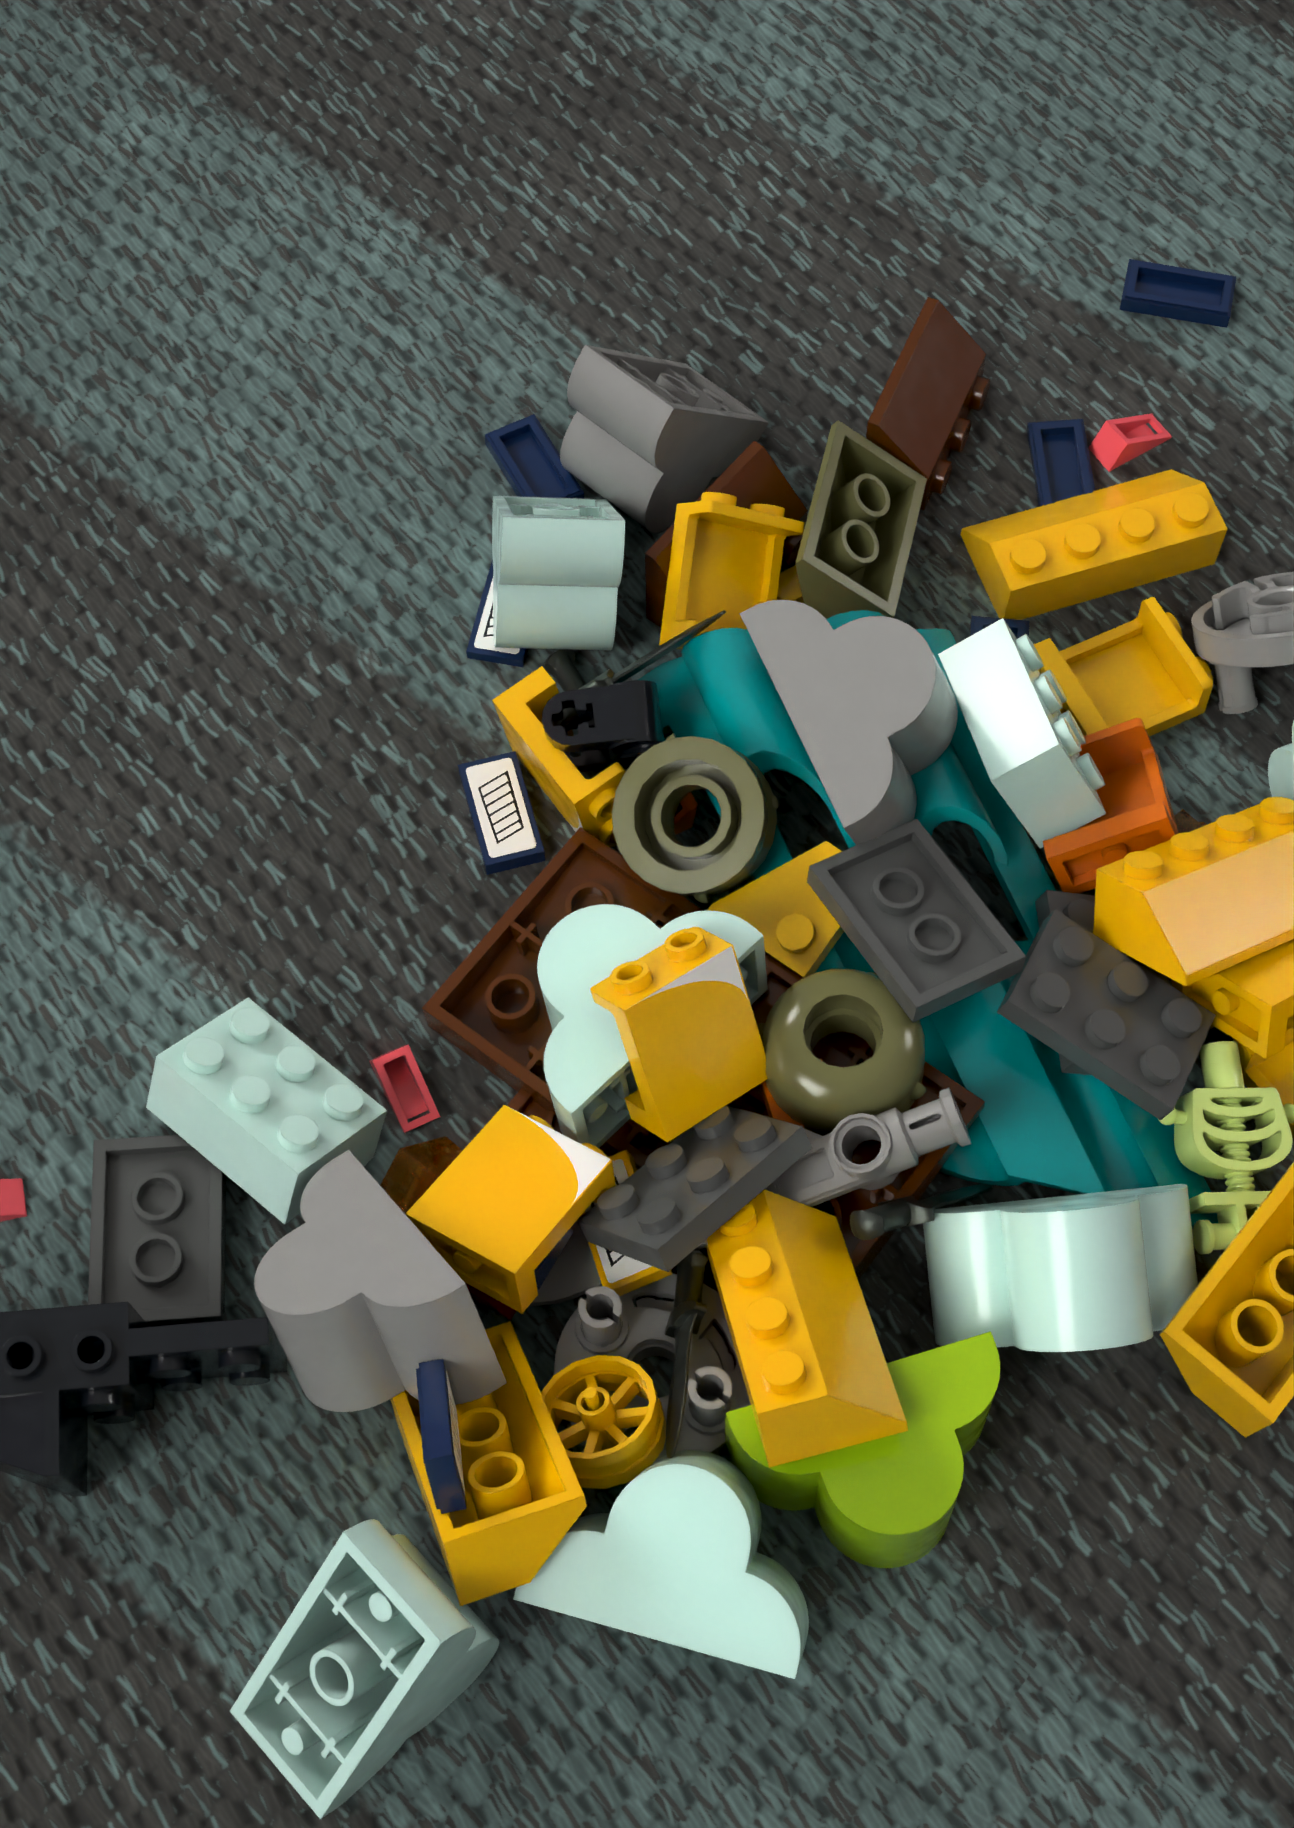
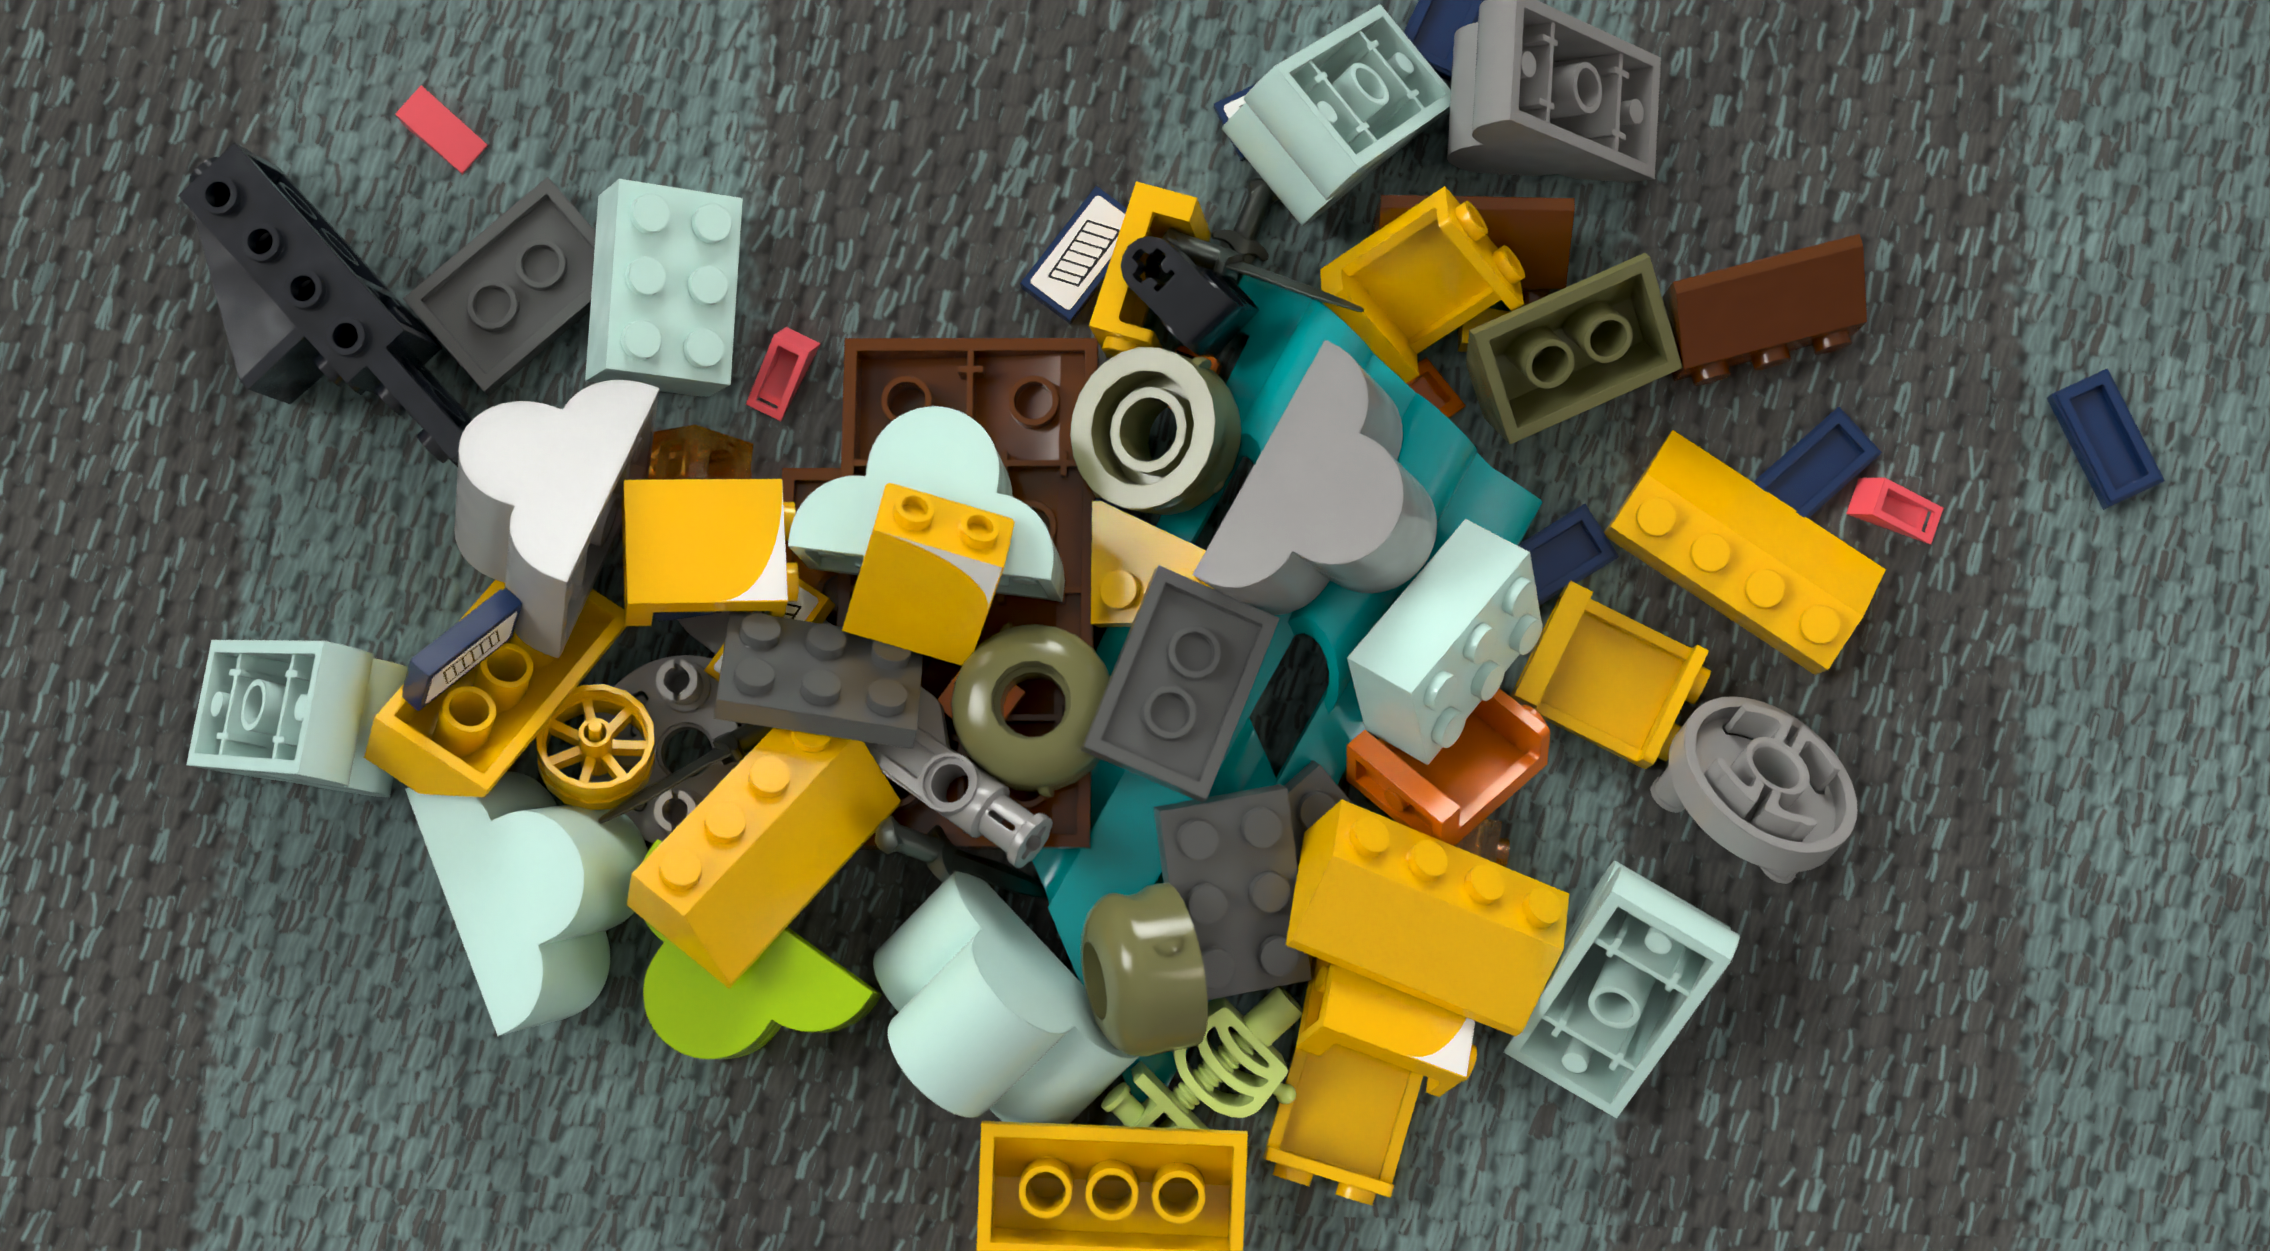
camera: 50 degrees right, 20 degrees up
(1129, 1108) = (1145, 971): none -> olive piece

